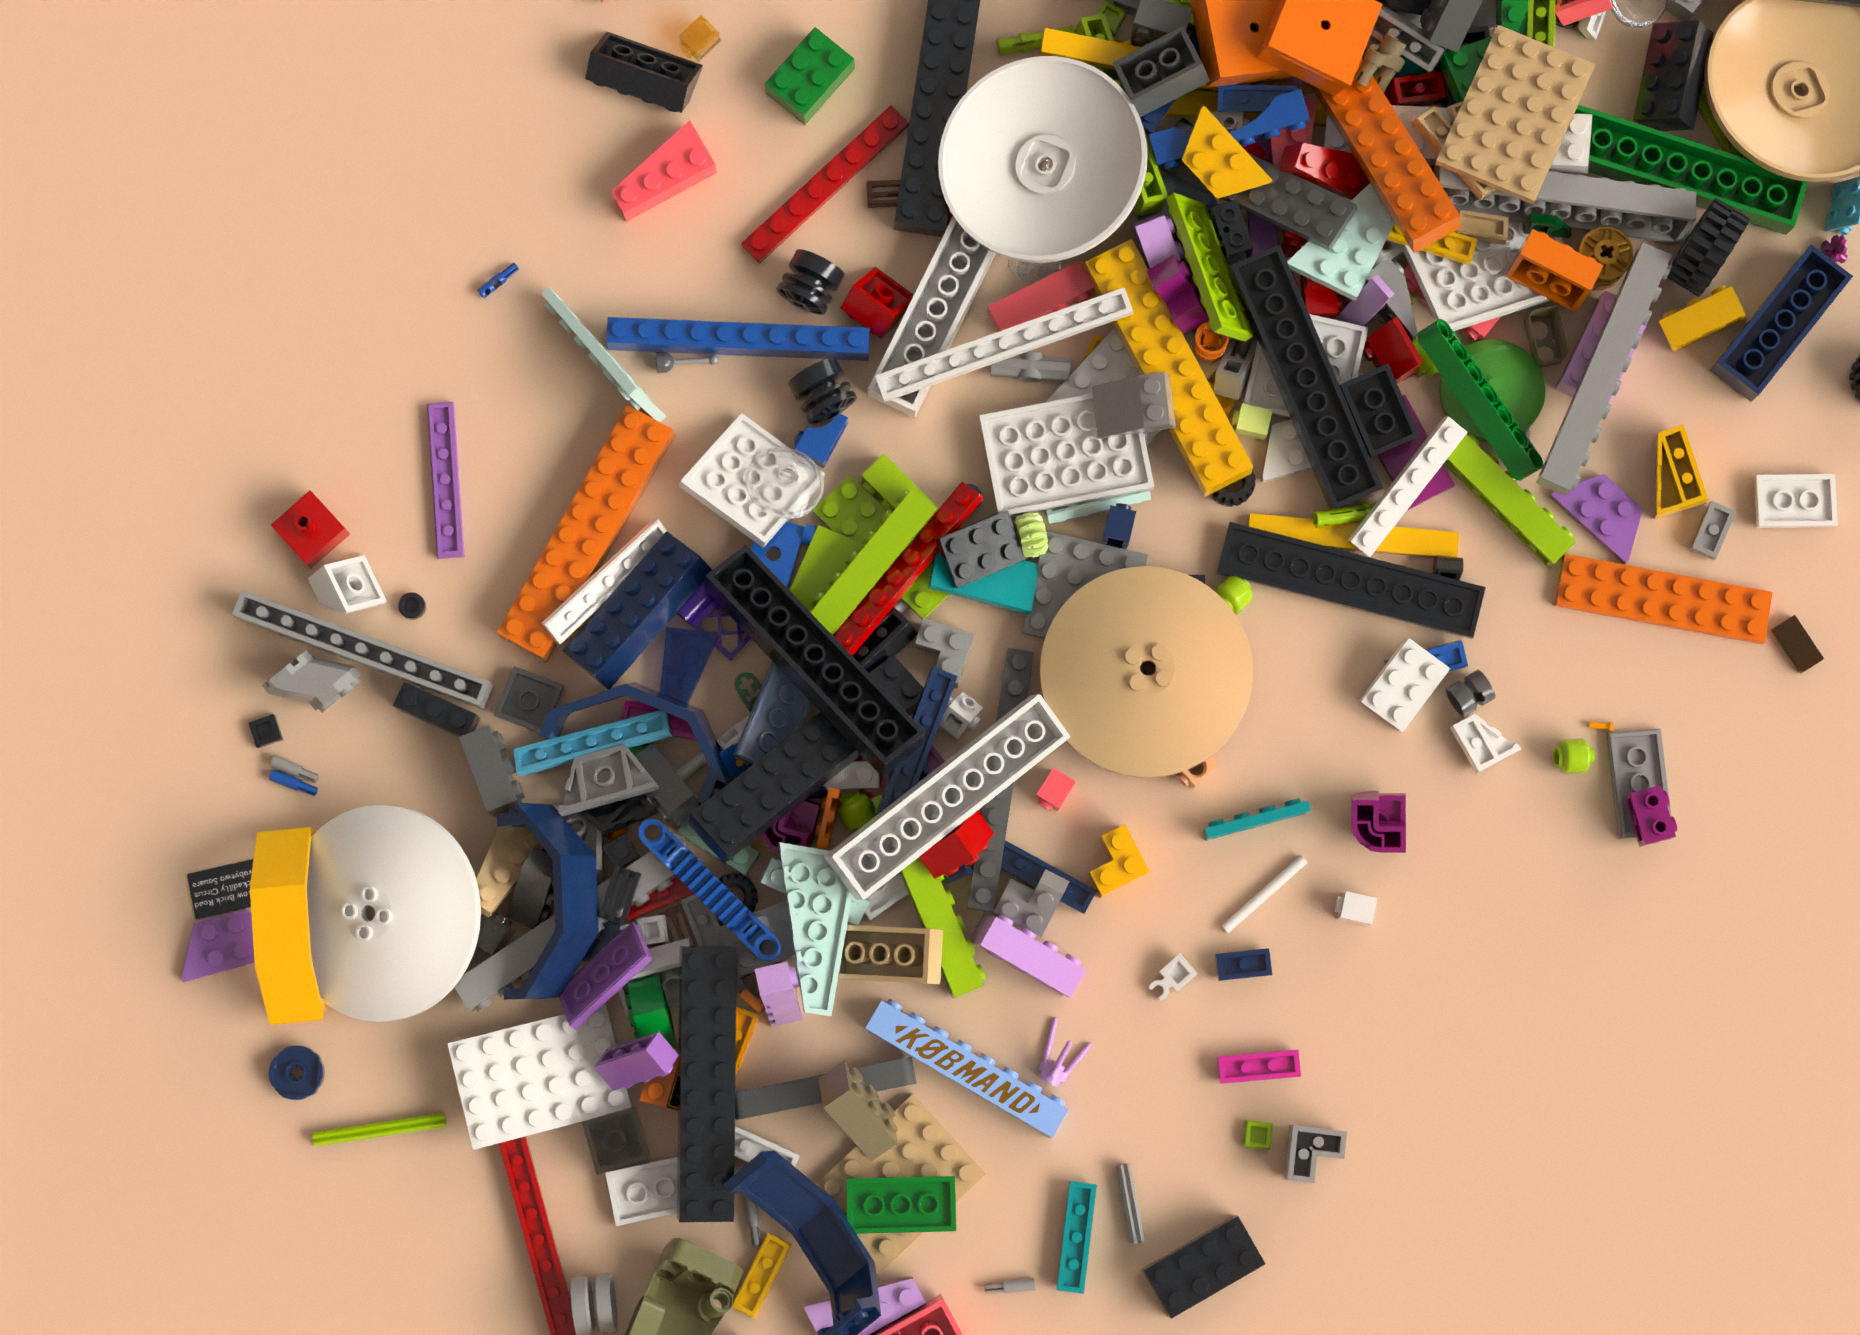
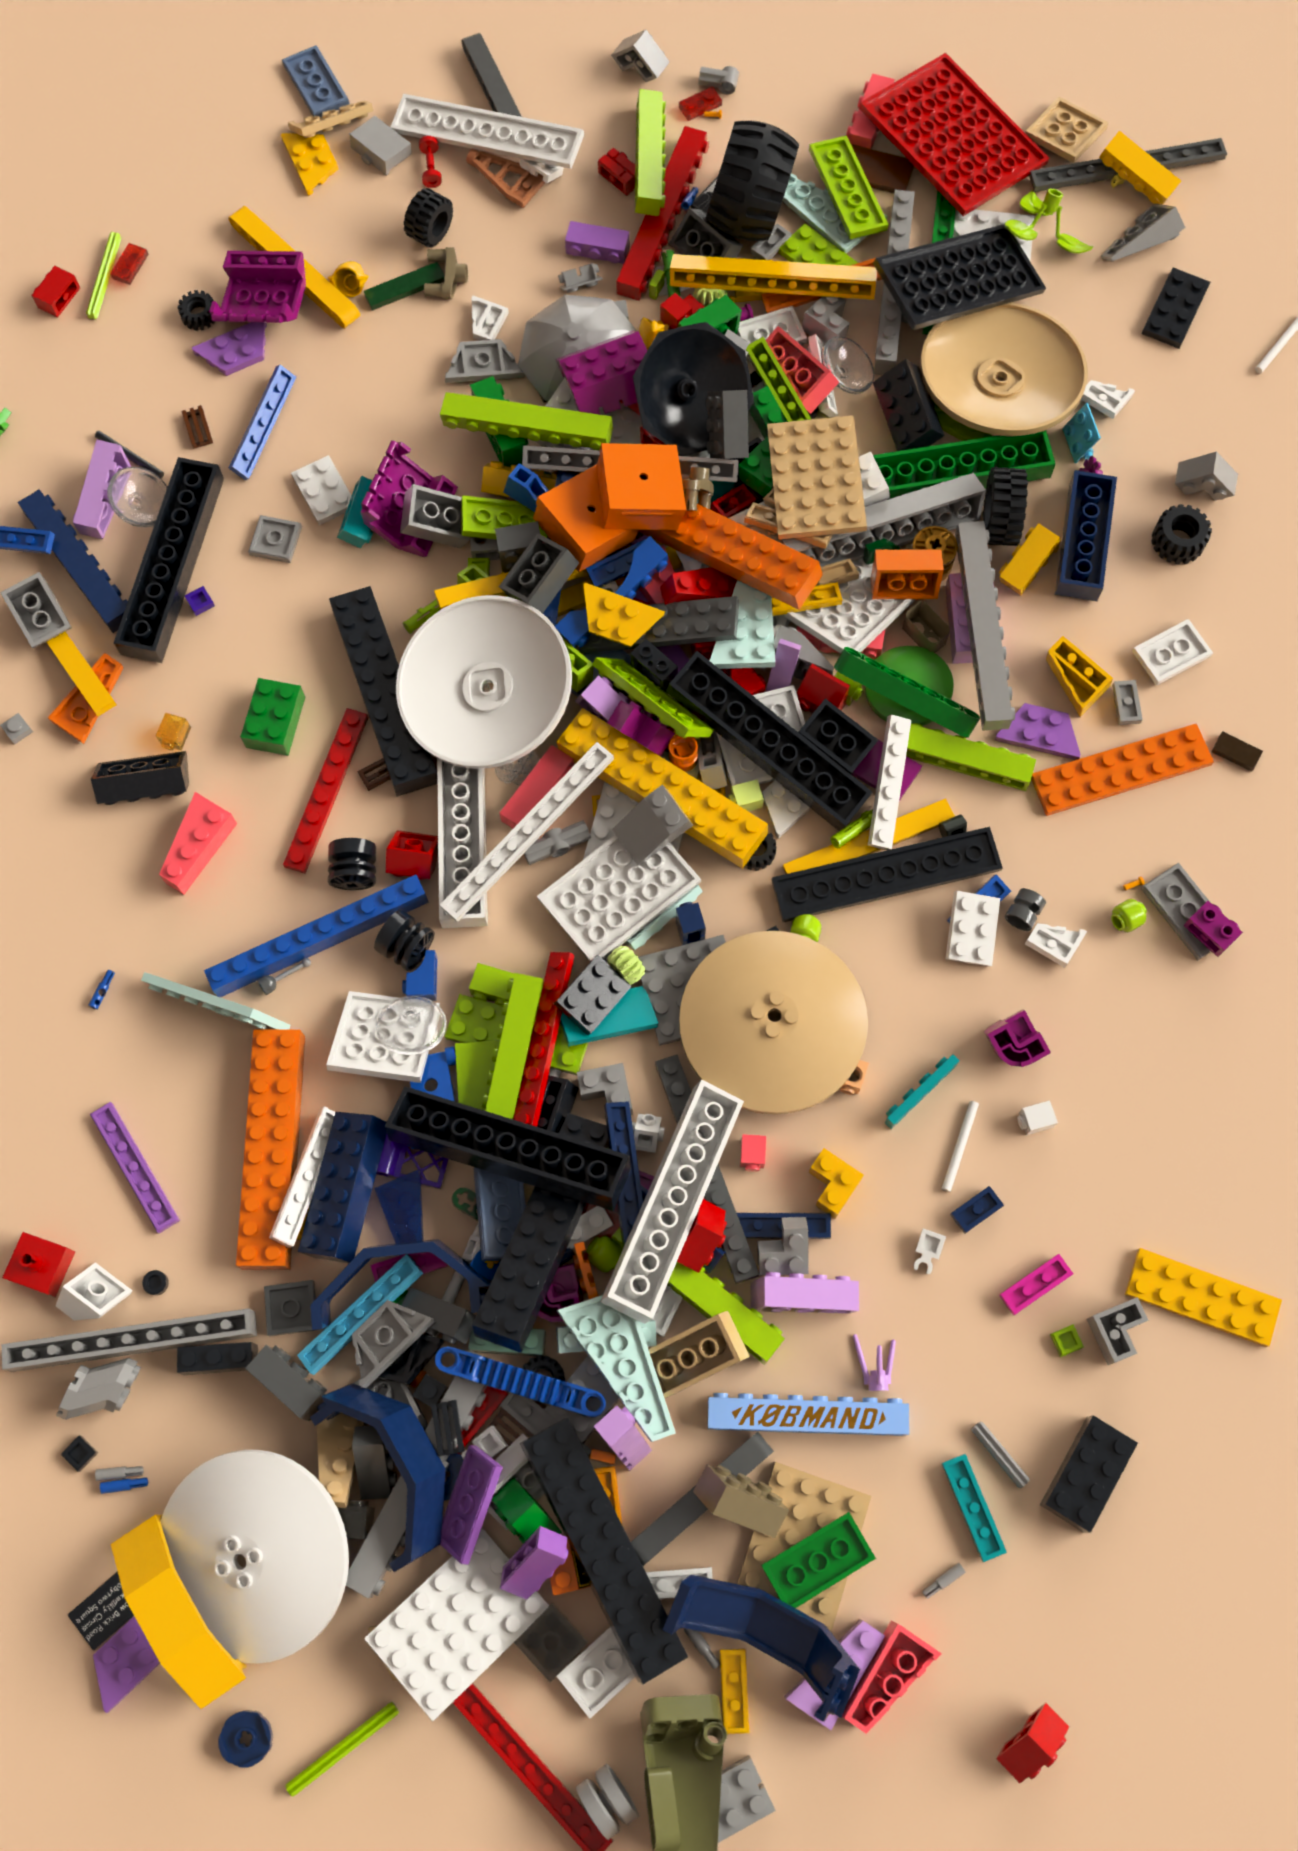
camera: 25 degrees left, 10 degrees down
(1416, 1167) = (1203, 1297): none -> yellow plate

